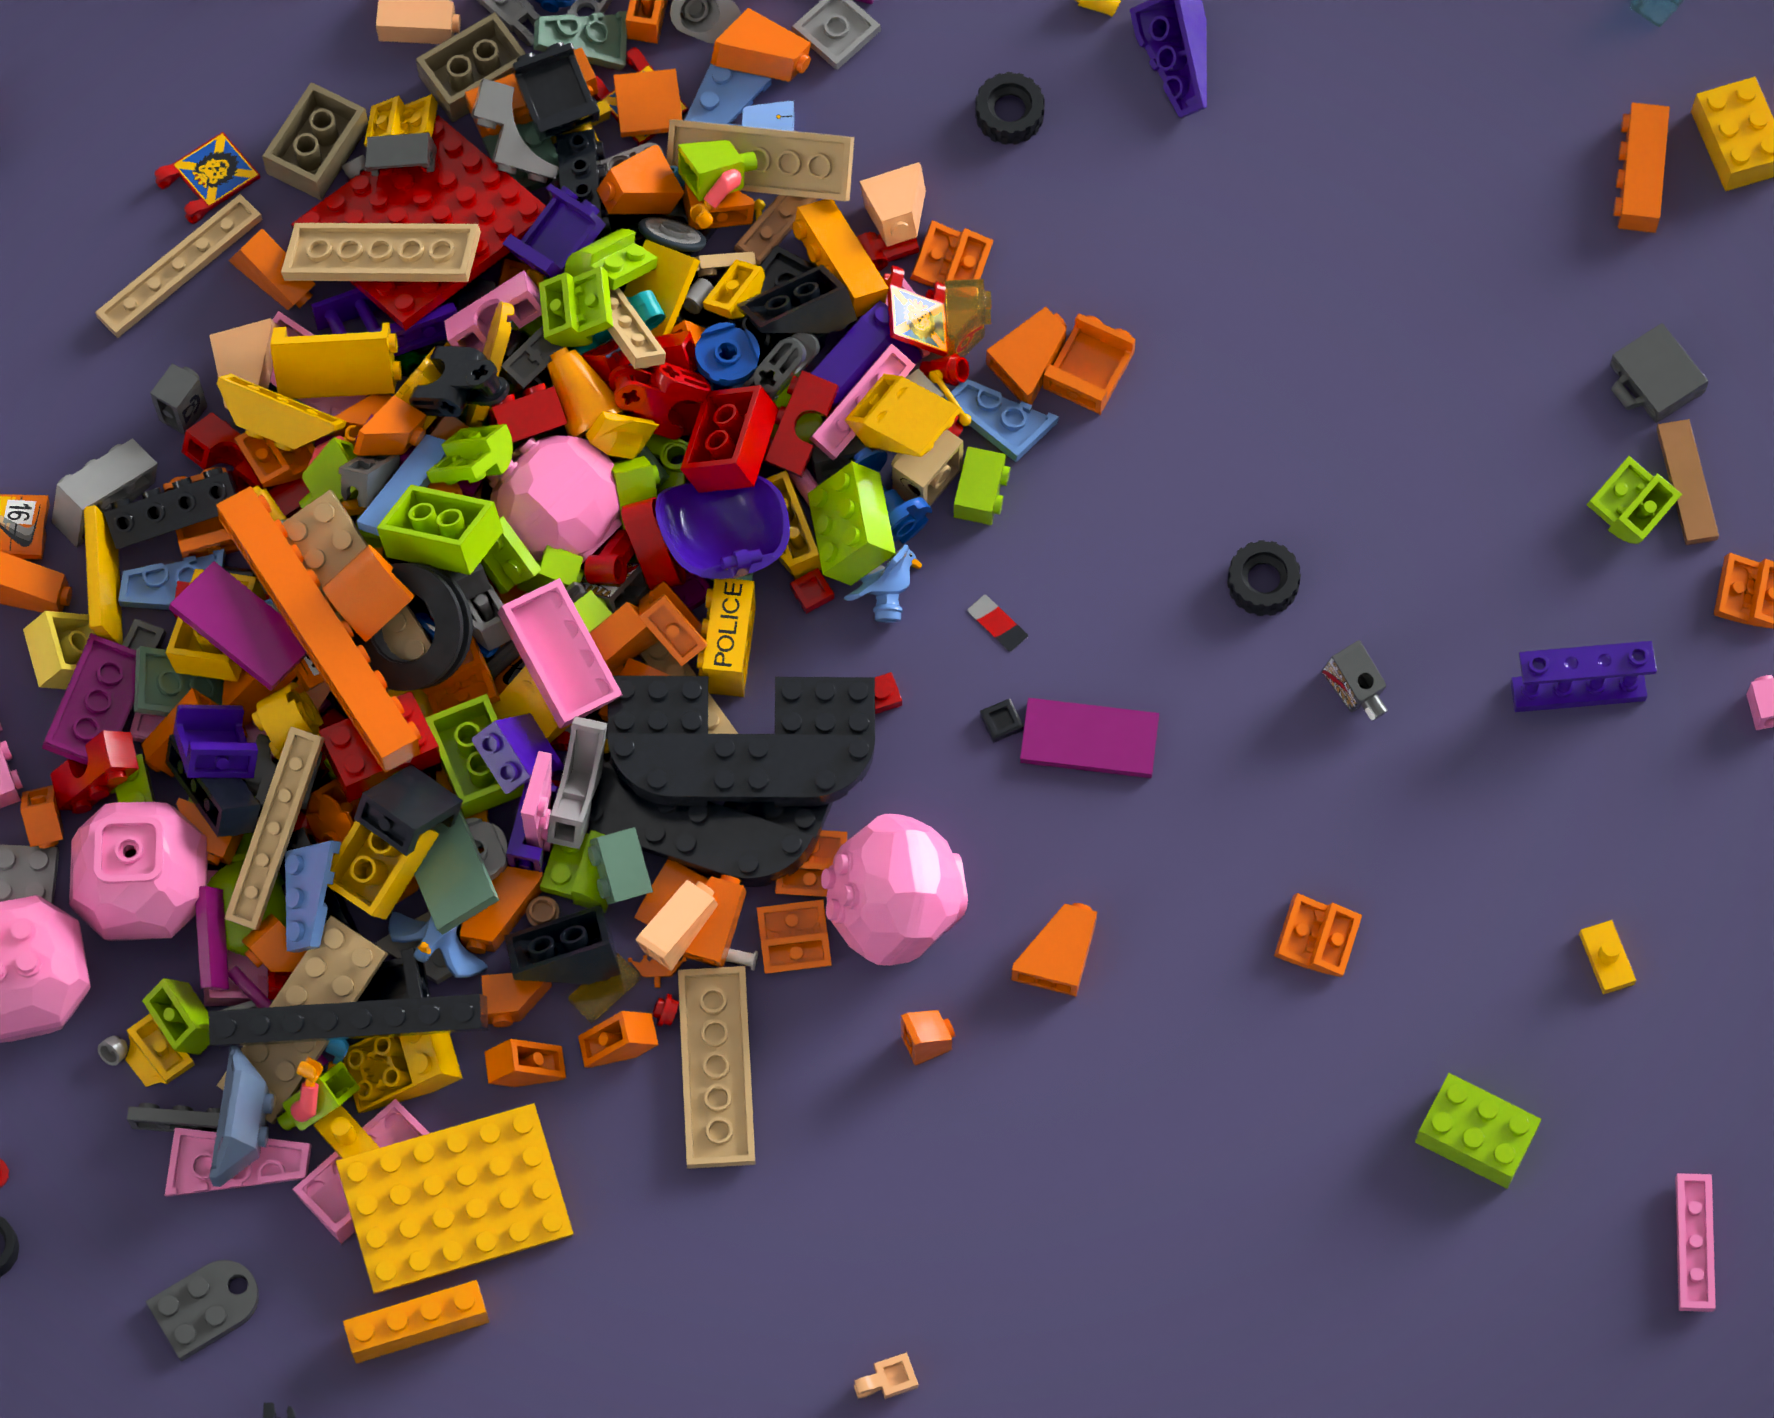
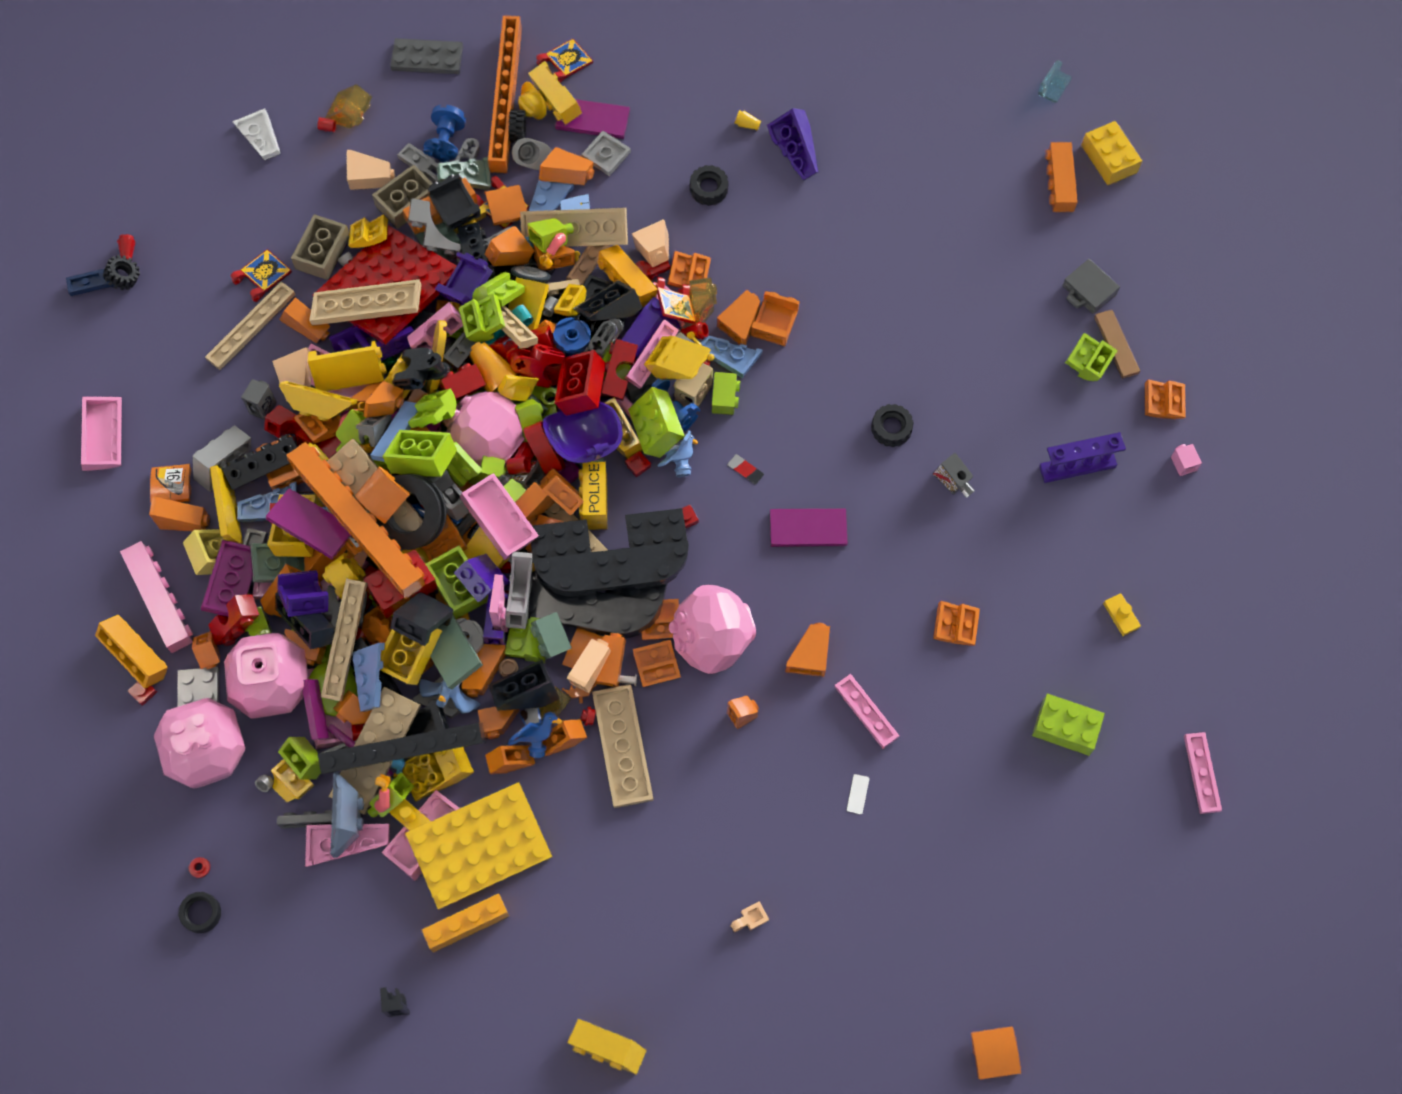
camera: 10 degrees left, 0 degrees up
(203, 1308) = (336, 931): dark grey plate -> none
(400, 151) = (369, 246): dark grey hinge -> none
(572, 1022) = (535, 730): none -> blue animal
(1001, 720) = (756, 524): black tile -> none
(1101, 1200) = (858, 794): none -> white sticker
(1138, 1063) = (866, 711): none -> bright pink plate

